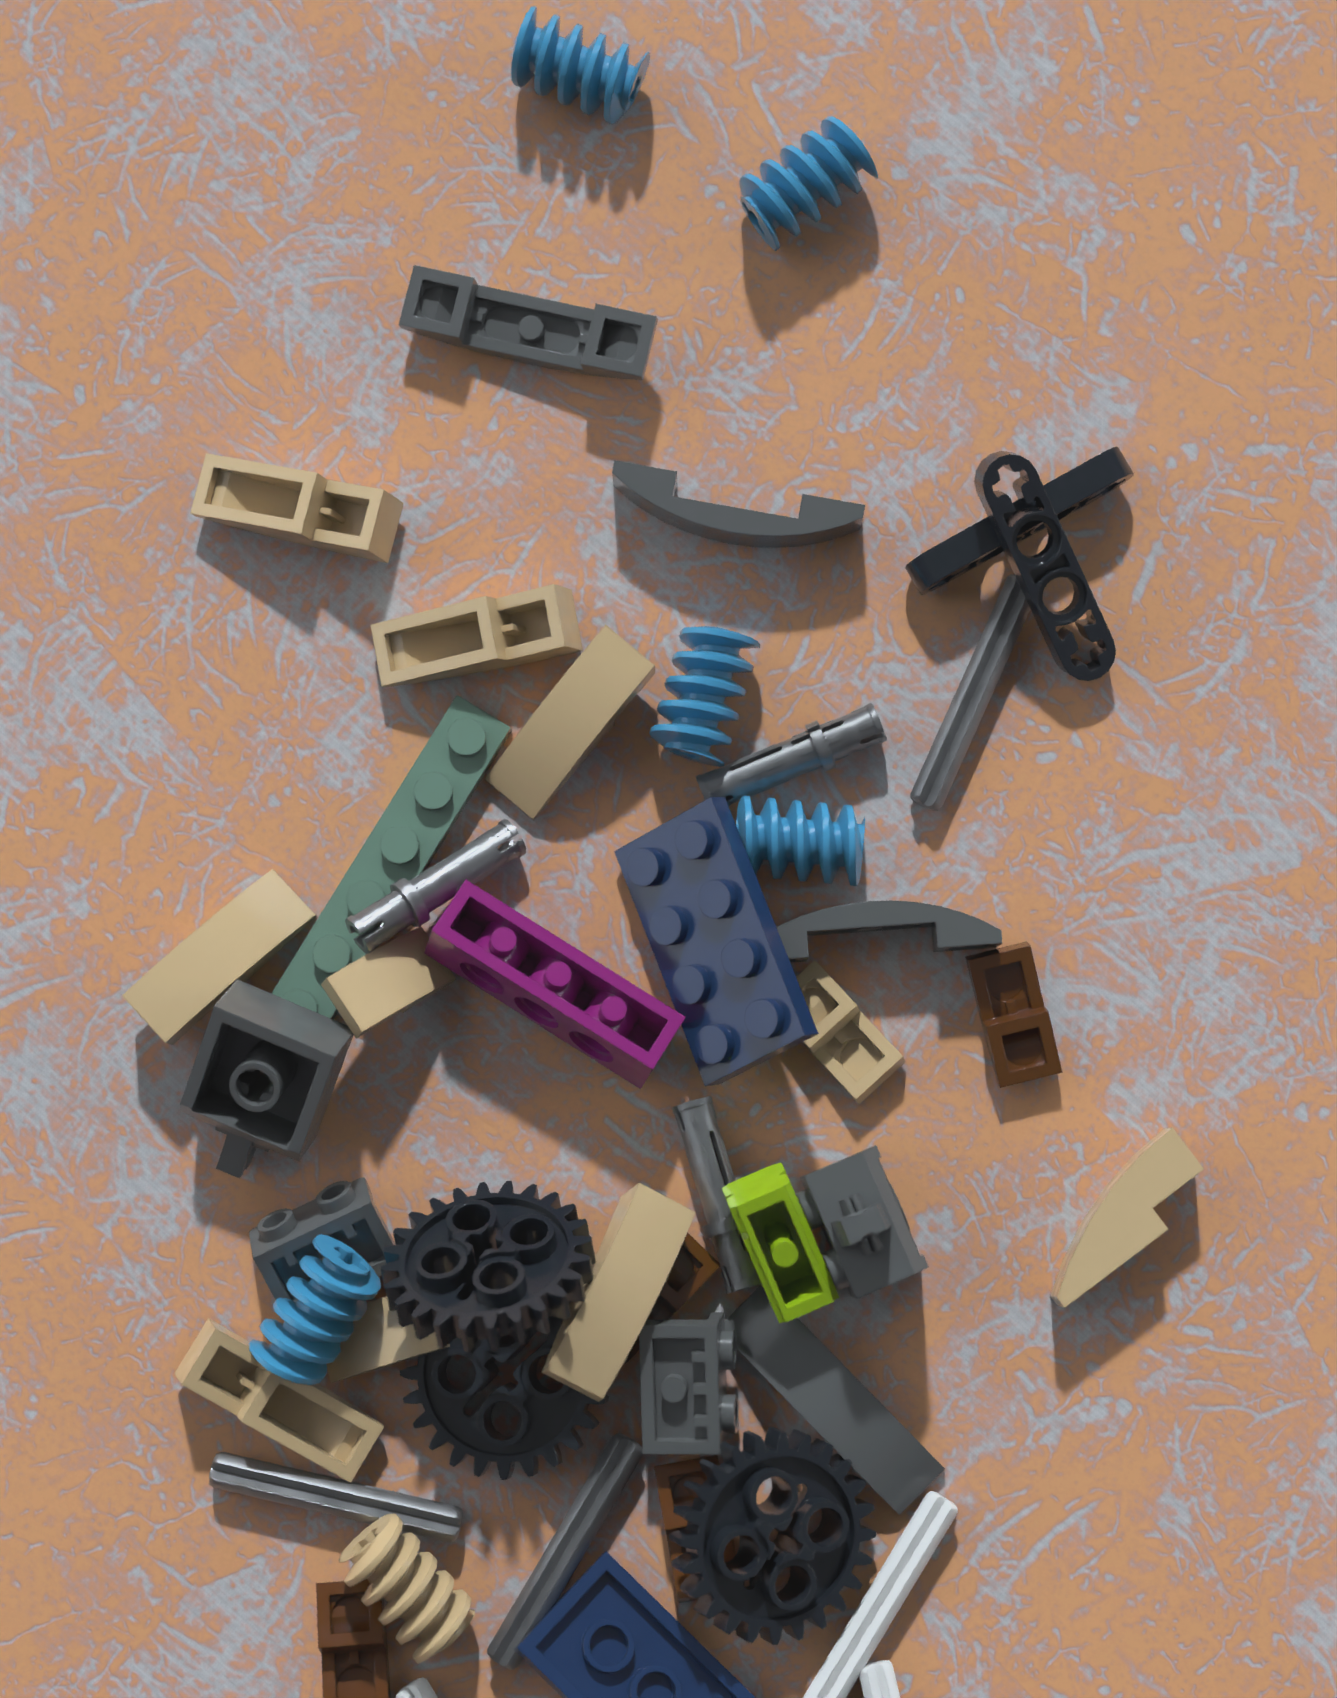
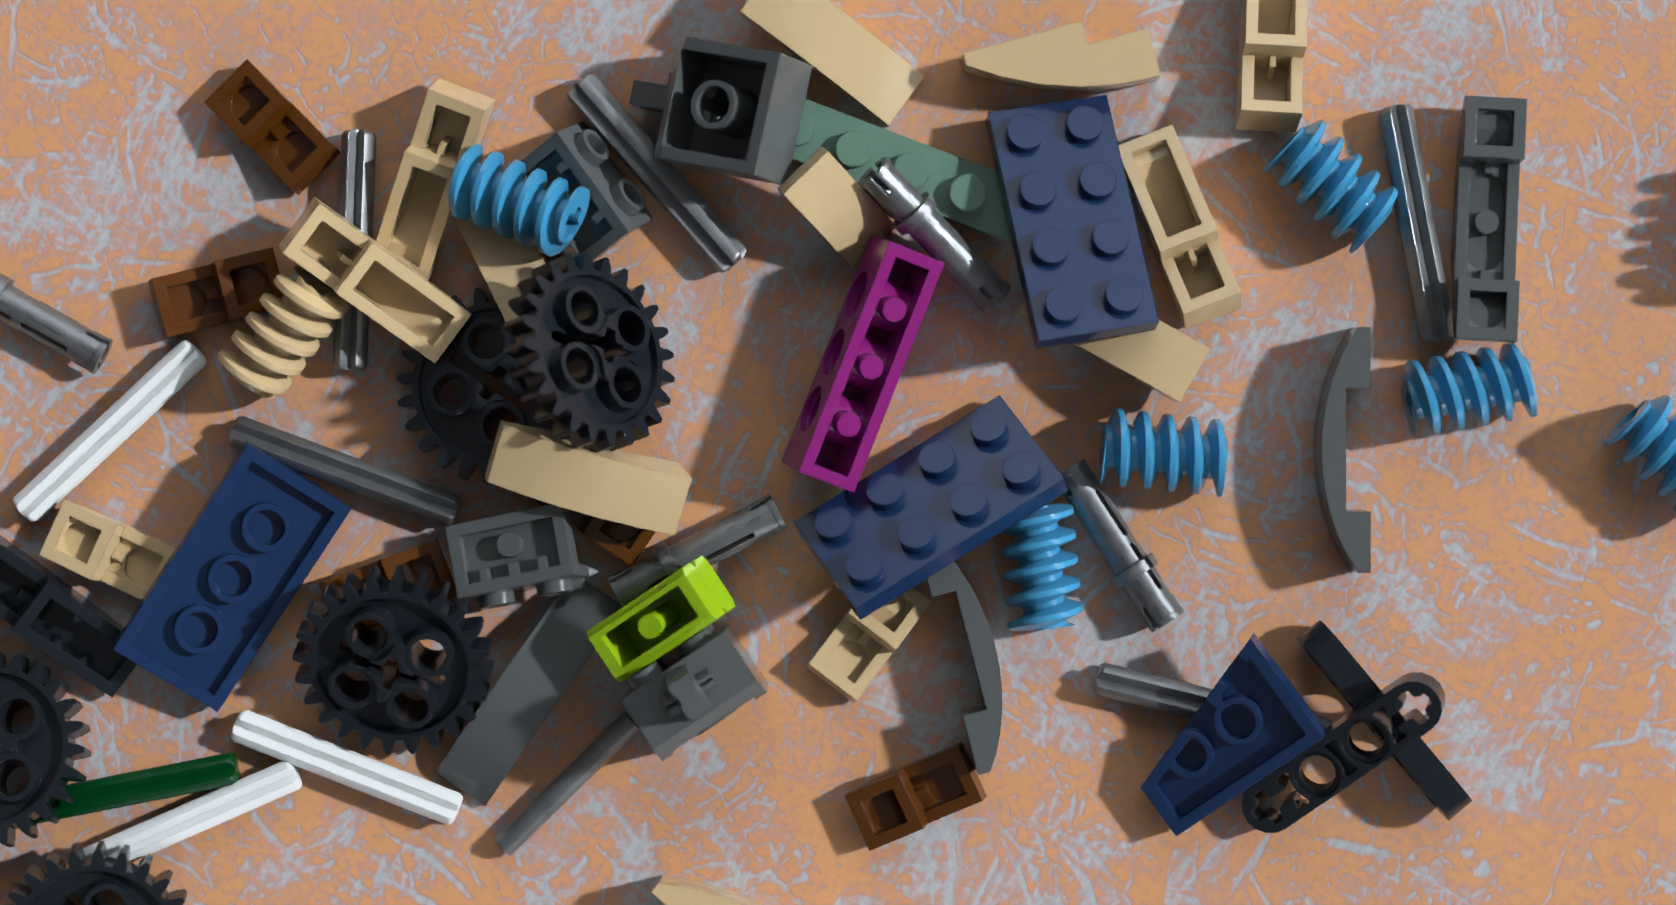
camera: 75 degrees right, 5 degrees up
(190, 1559) = (272, 127): none -> reddish brown slope
(285, 720) = (1066, 62): none -> tan slope
(318, 1164) = (657, 176): none -> flat silver axle
(370, 1479) = (374, 280): none -> tan slope
(449, 743) = (1071, 221): none -> dark blue plate
(461, 472) = (1333, 183): none -> dark azure piece
(519, 398) = (1417, 223): none -> flat silver axle
(693, 375) = (1468, 387): none -> dark azure piece
(937, 1377) = (566, 784): none -> flat silver bar
(1013, 677) = (1233, 740): none -> dark blue wing

